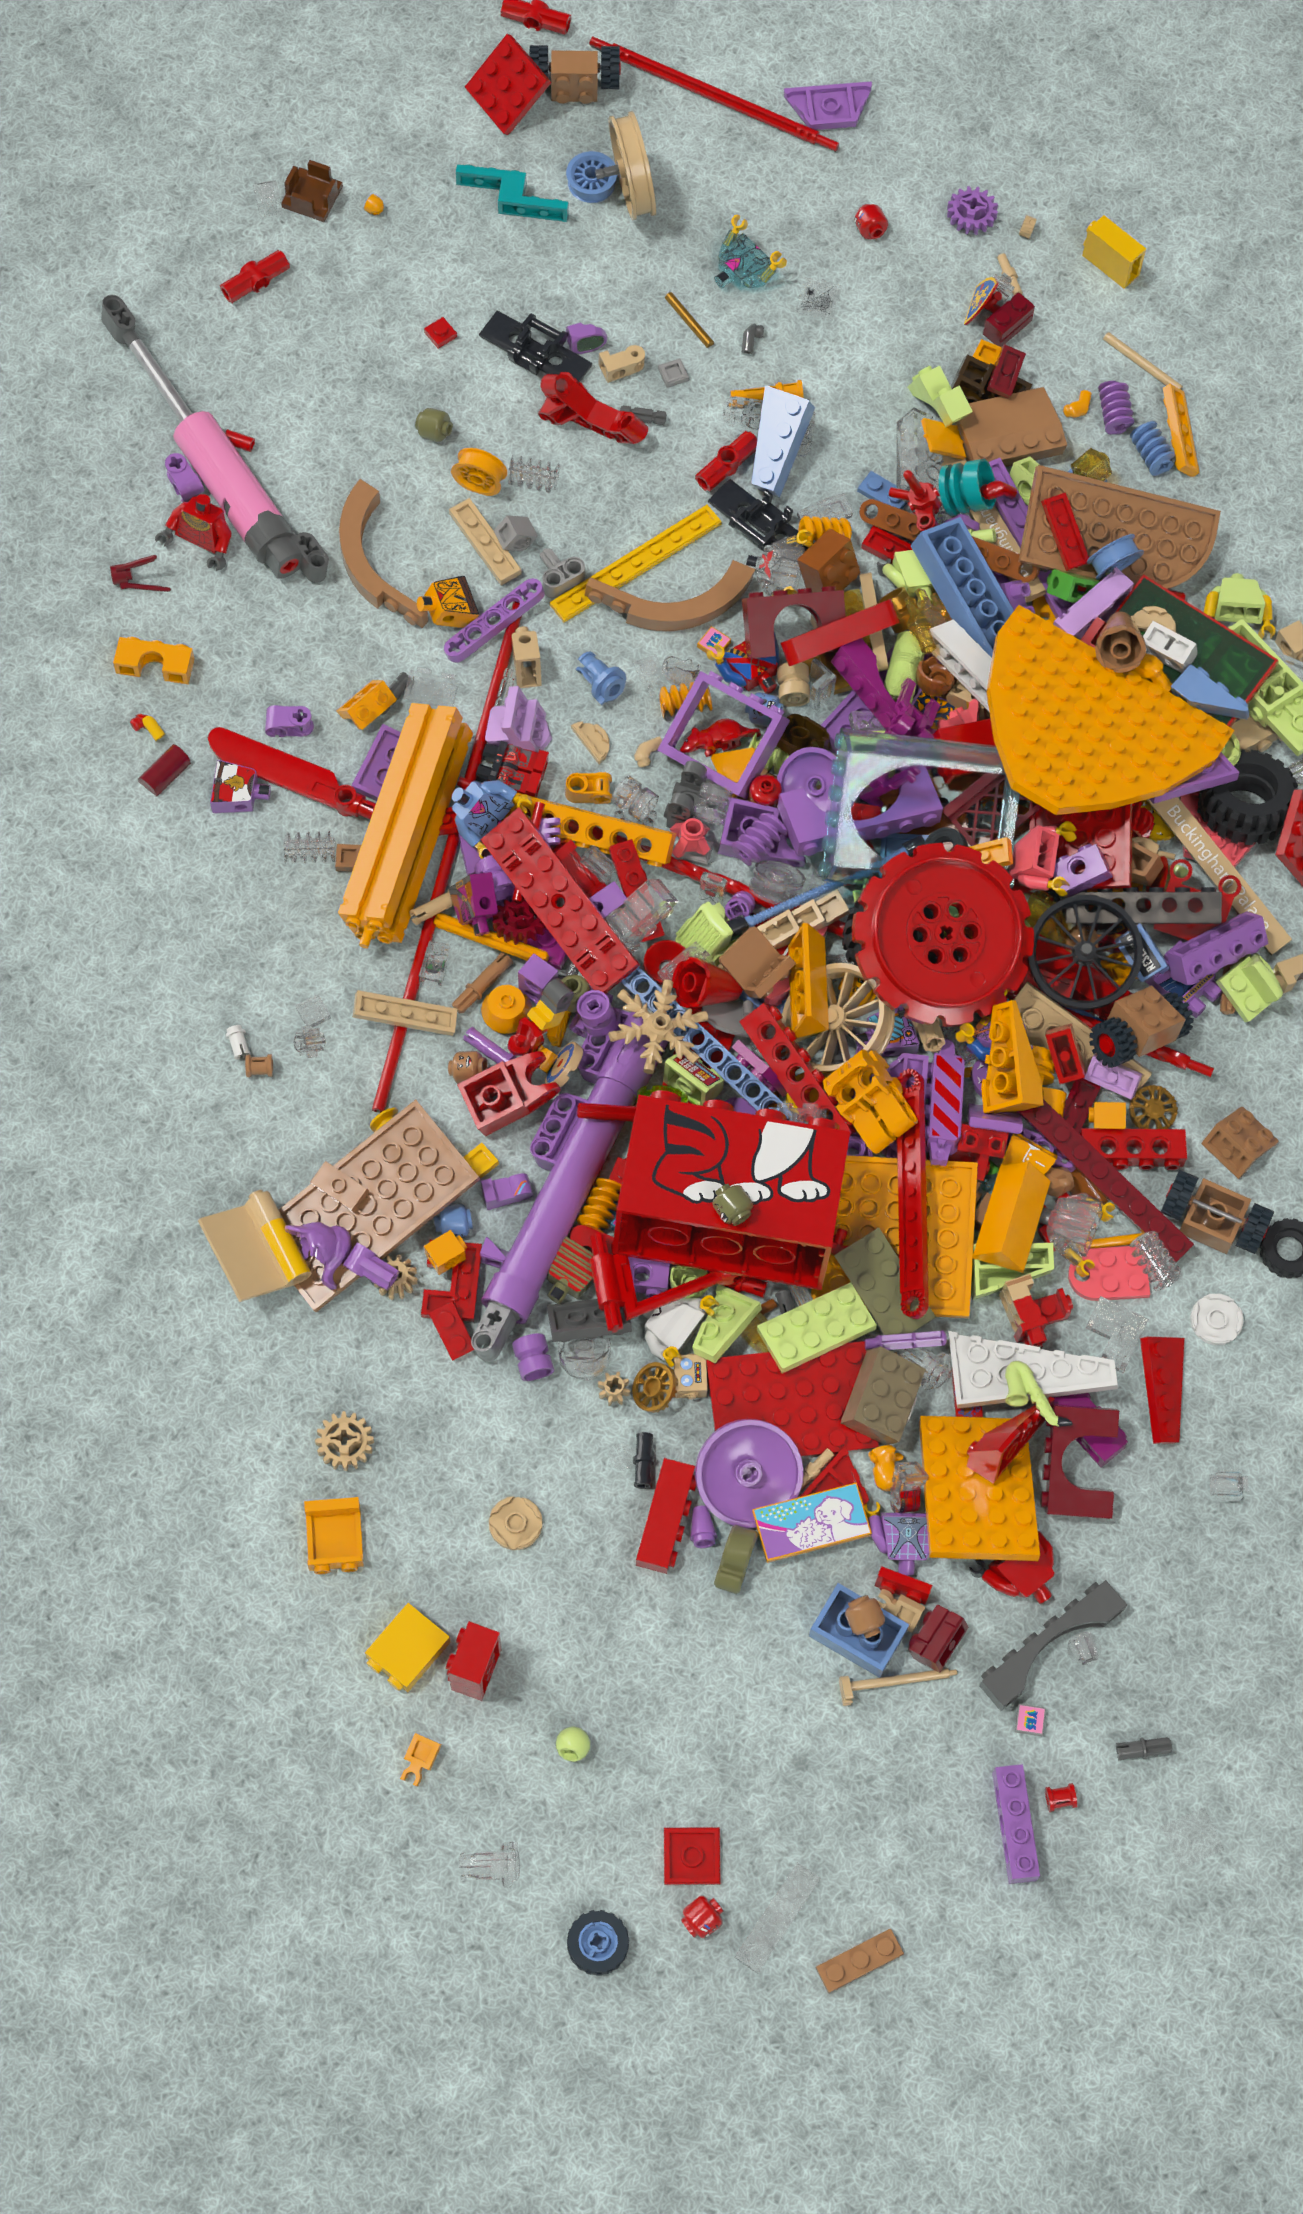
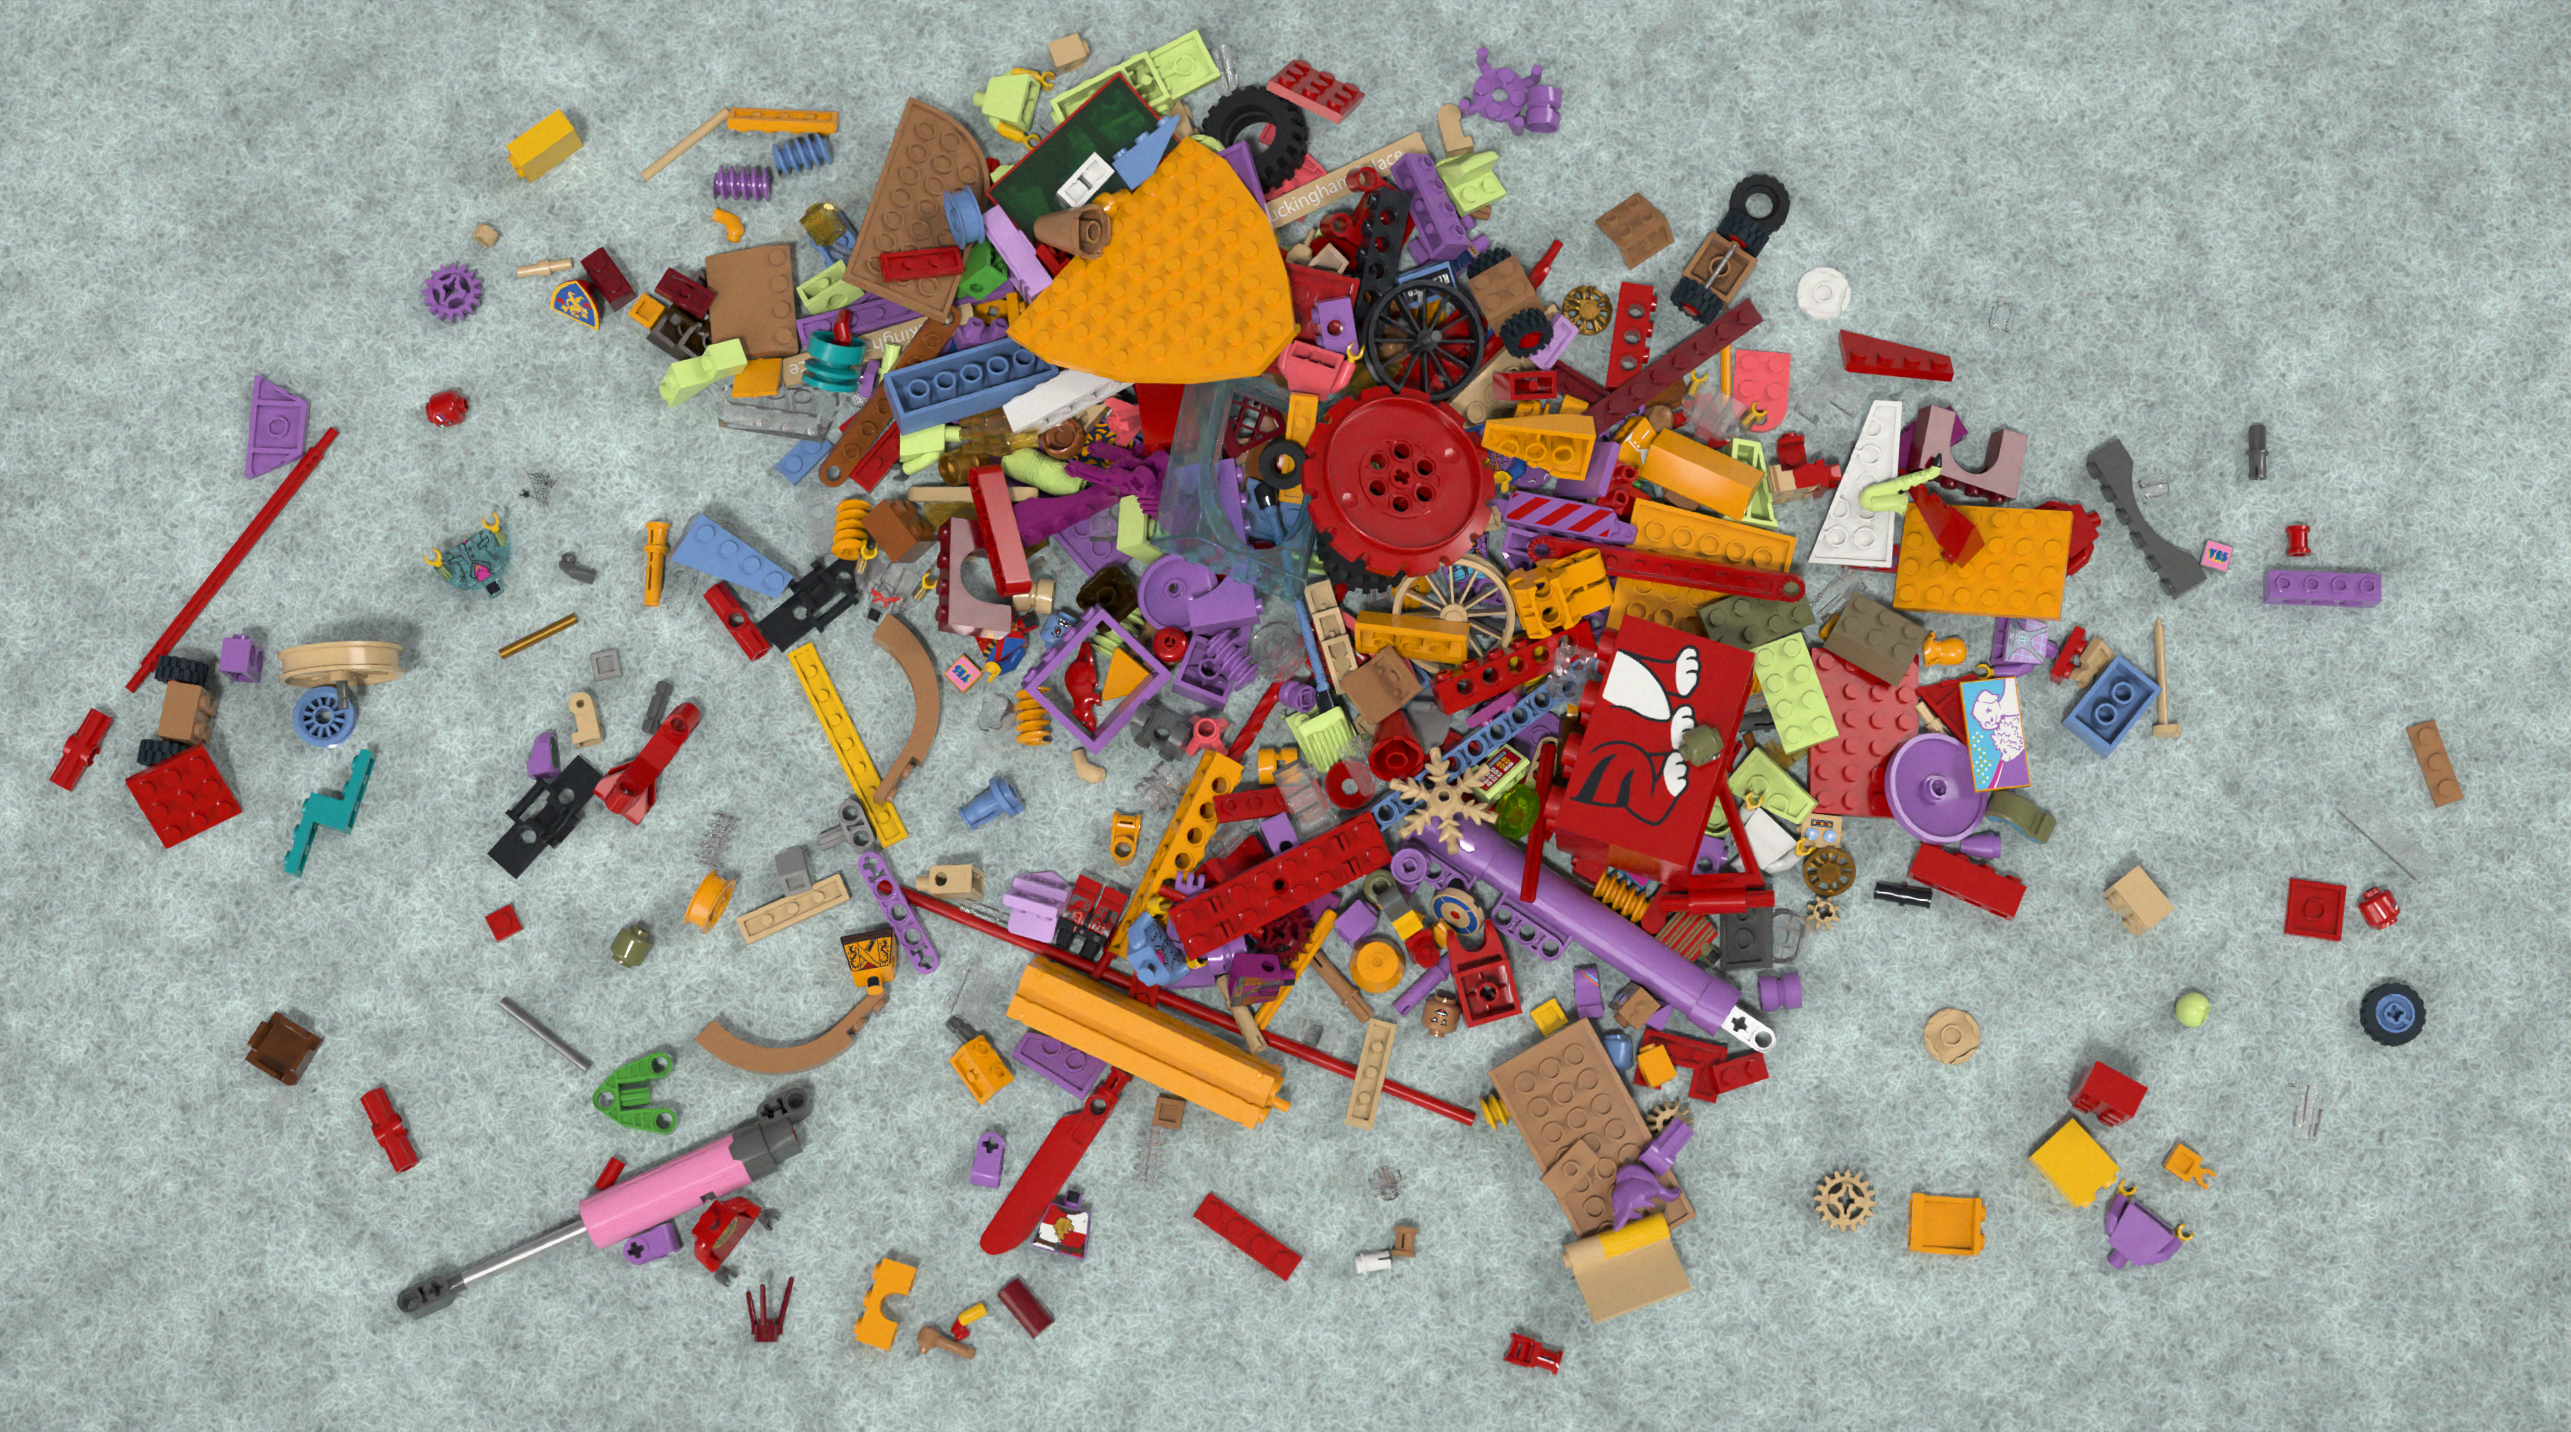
camera: 75 degrees left, 10 degrees up
(130, 699) = (930, 1338): none -> medium nougat piece
(170, 1184) = (1530, 1354): none -> red connector
(248, 938) = (1247, 1237): none -> red plate
(314, 430) = (632, 1074): none -> bright green connector
(347, 1715) = (2139, 1233): none -> medium lavender torso
(351, 376) = (545, 1034): none -> flat silver bar
(374, 205) = (315, 976): light orange hinge -> none
(498, 1228) = (1633, 1007): none -> medium nougat head
(593, 738) = (1062, 824): tan tile -> none
(629, 98) = (241, 659): none -> medium lavender brick
(669, 1674) = (2138, 901): none -> tan brick
(683, 909) = (1268, 762): none -> light orange wheel
(714, 795) = (1172, 697): clear wheel -> none
(865, 1616) = (2110, 695): medium nougat head -> none
(907, 1340) = (1817, 605): medium lavender piece -> none
(907, 1487) = (1972, 633): clear leg -> none
(922, 499) = (845, 411): red piece -> none
(937, 1638) = (2127, 631): dark red brick -> none
(1004, 286) = (561, 274): clear gear -> none
(1108, 1115) = (1594, 355): light orange brick -> none
(1153, 613) = (1042, 192): tan tile -> none
(1157, 1260) = (1761, 340): clear piece -> none

